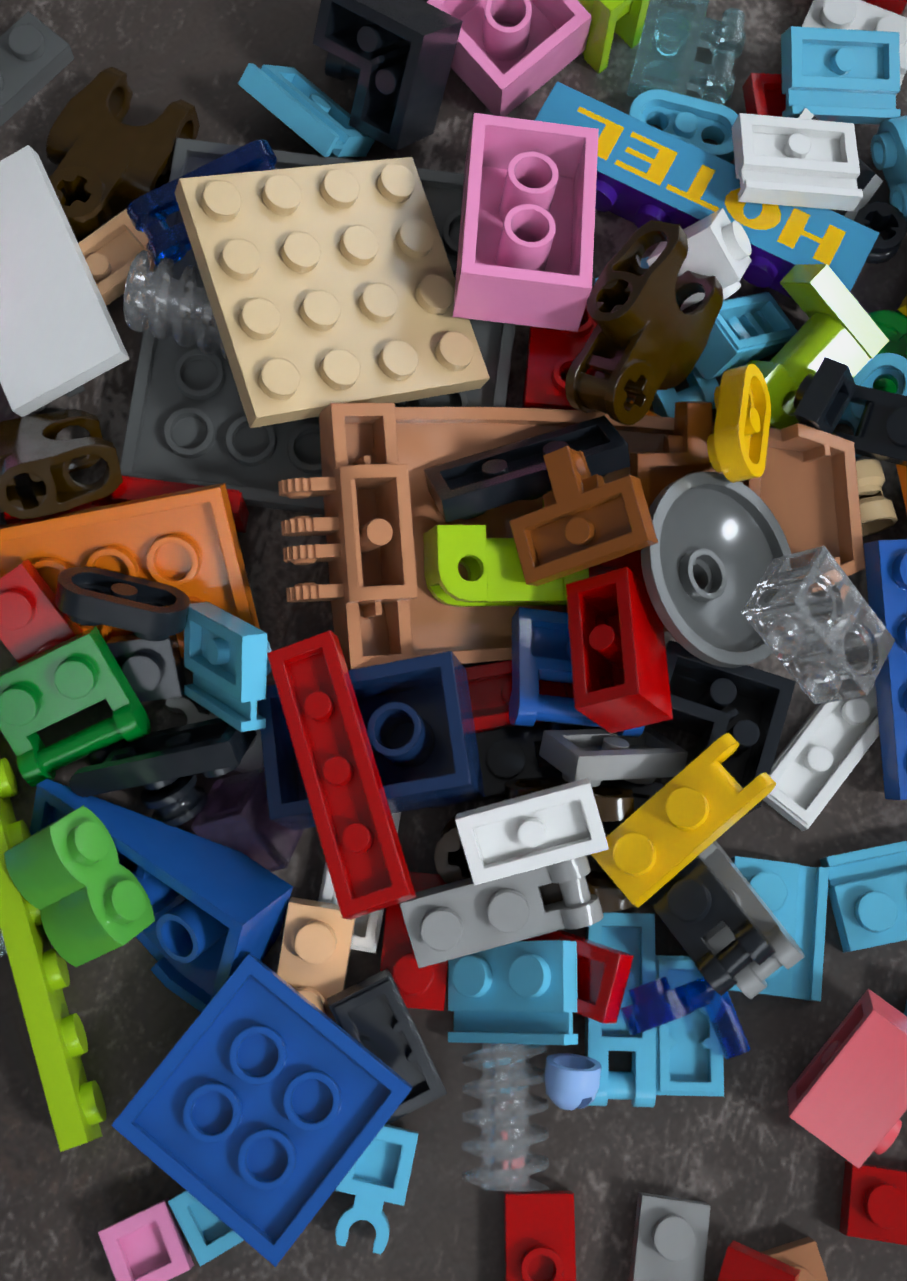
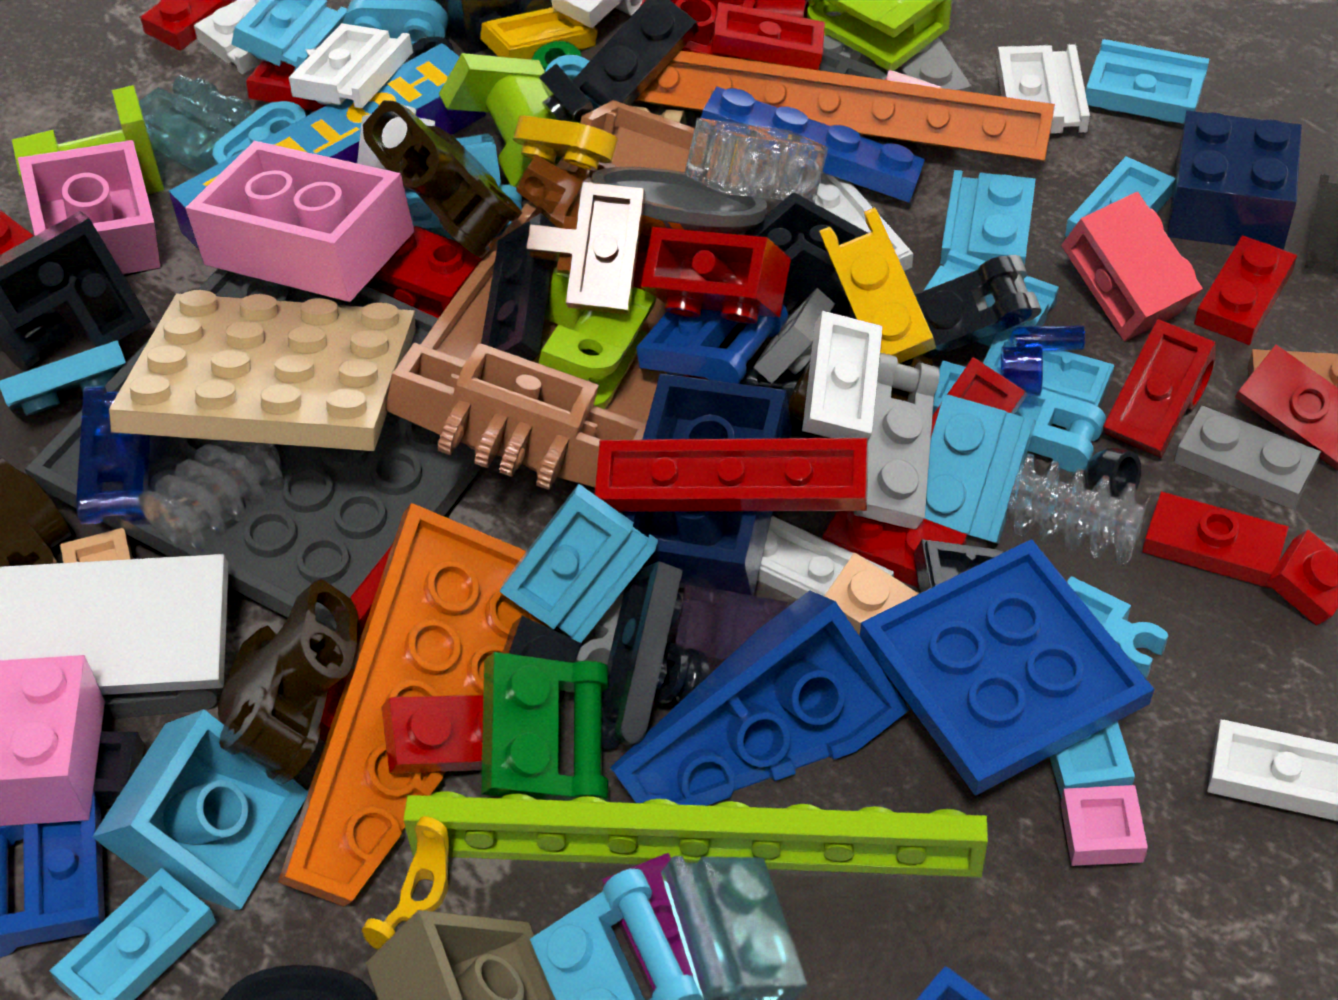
camera: 60 degrees left, 25 degrees down
(79, 887) = (734, 752): bright green brick -> none
(122, 601) = (490, 614): black plate -> none
(571, 1080) = (1067, 445): light blue hinge -> none
(580, 1136) = (1118, 464): none -> black hinge
(704, 1157) = (1160, 387): none -> red plate

